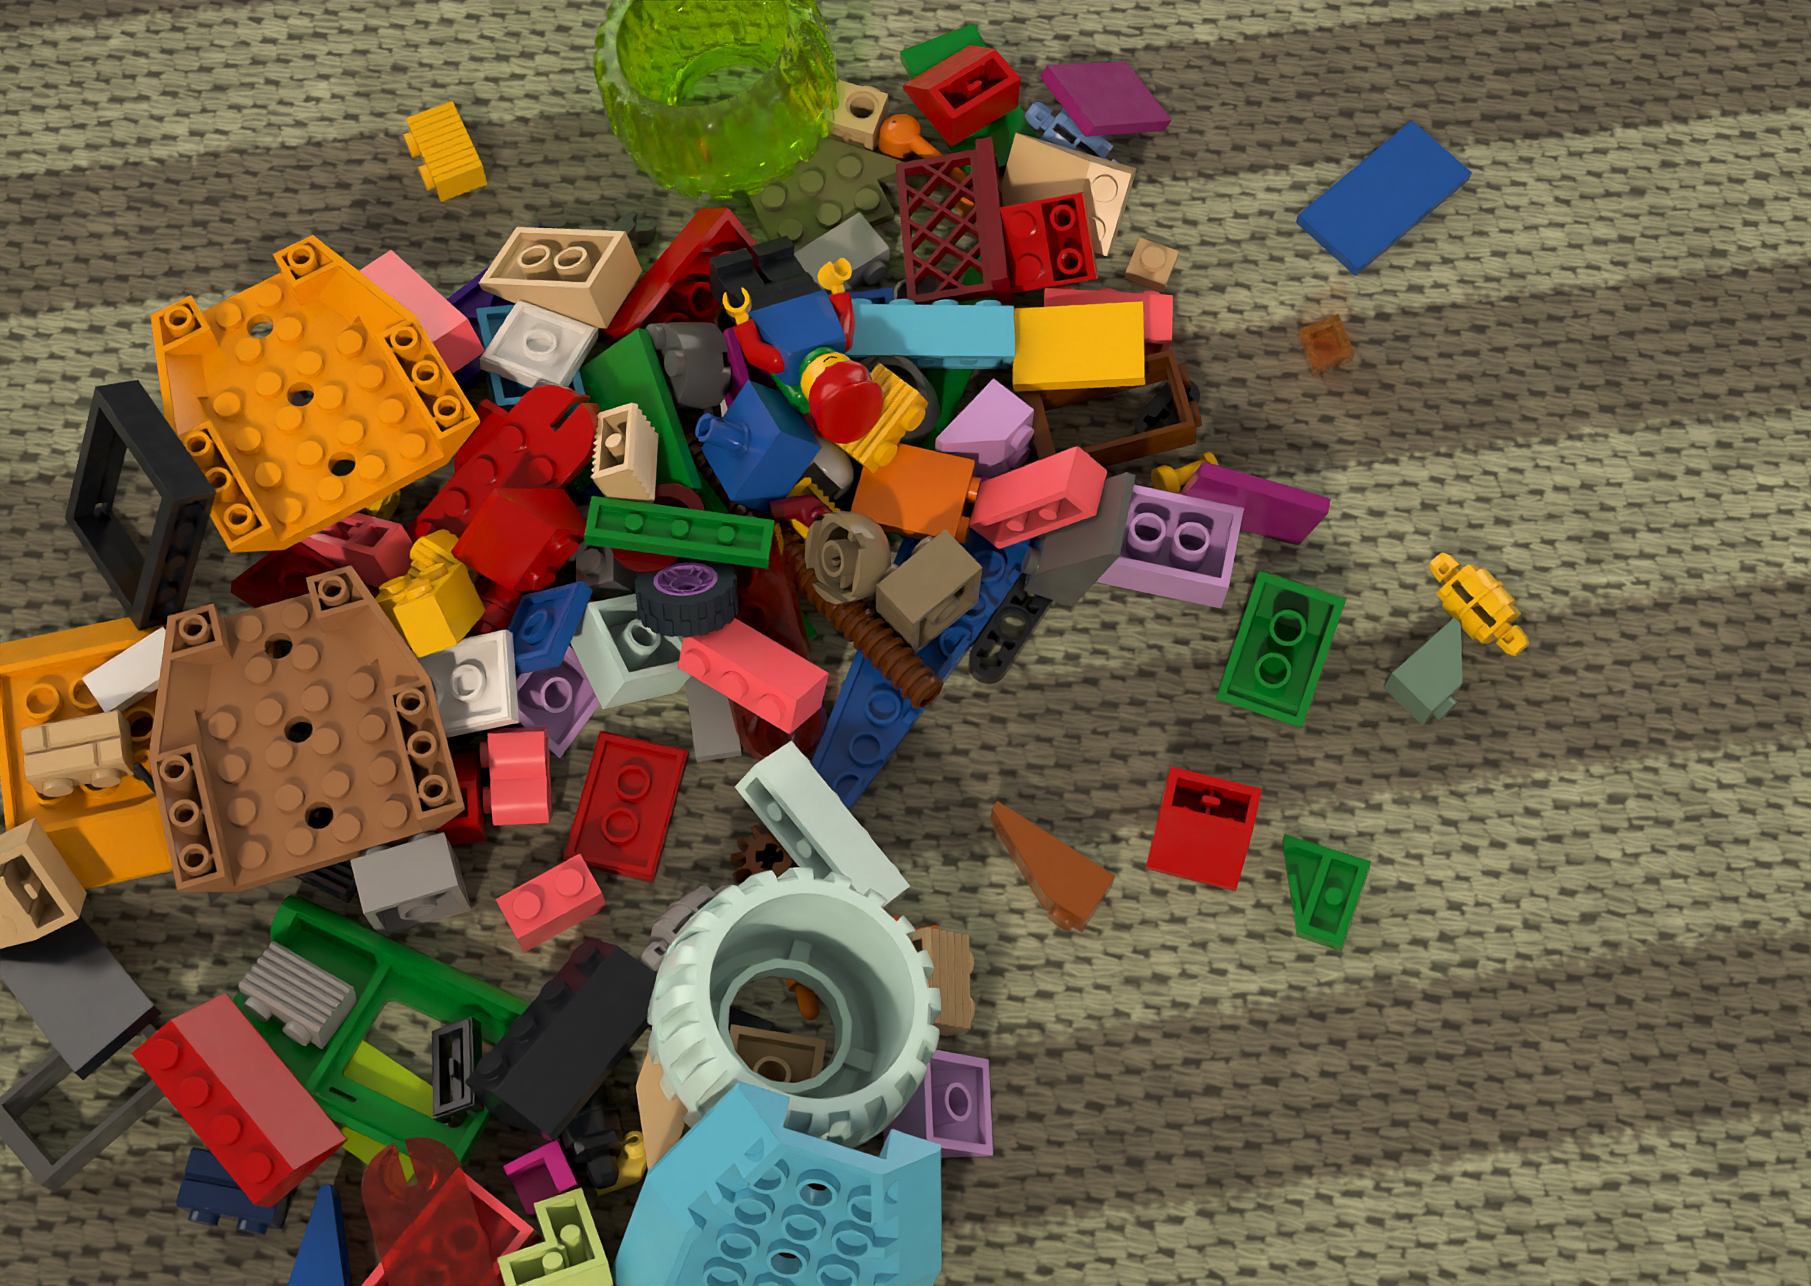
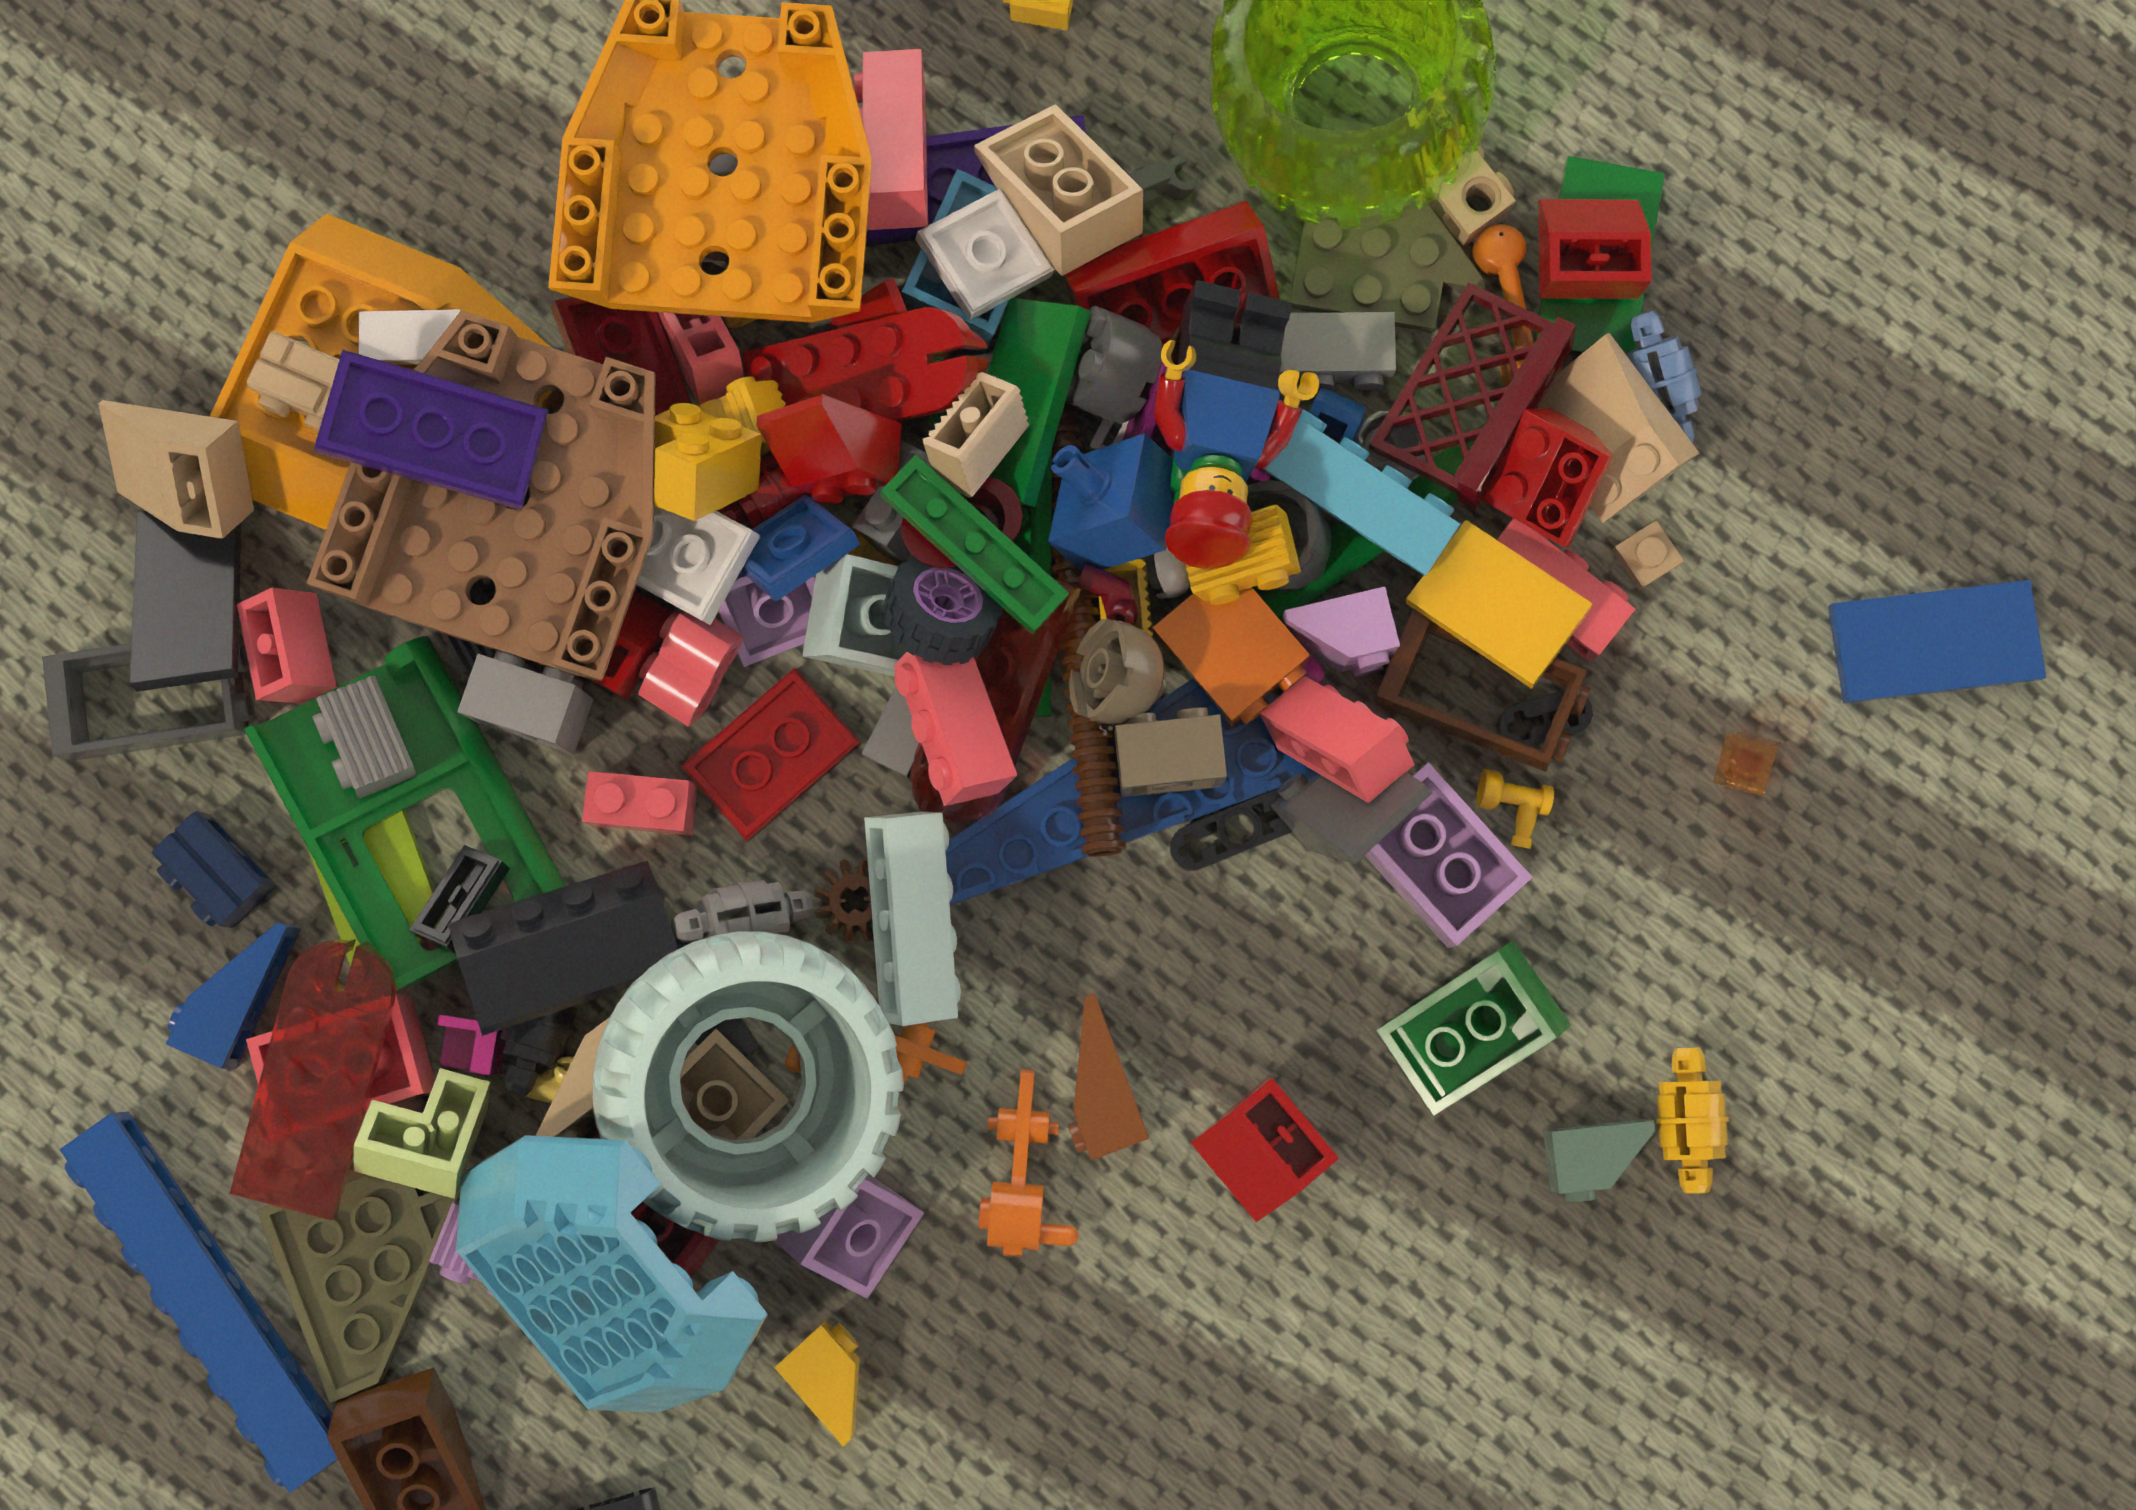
camera: 40 degrees right, 15 degrees up
(156, 586) = (534, 104): black window -> none
(180, 967) = (286, 645): none -> coral brick
(202, 713) = (431, 430): none -> dark purple tile
(240, 1099) = (251, 803): red slope -> none
(952, 972) = (932, 1112): tan brick -> none
(1008, 1231) = (826, 1377): none -> yellow slope
(1055, 1003) = (1015, 1208): none -> orange piece
(1105, 98) = (1729, 352): magenta tile -> none
(1268, 506) = (1551, 881): magenta tile -> none
(1323, 890) = (1334, 1280): green wing -> none

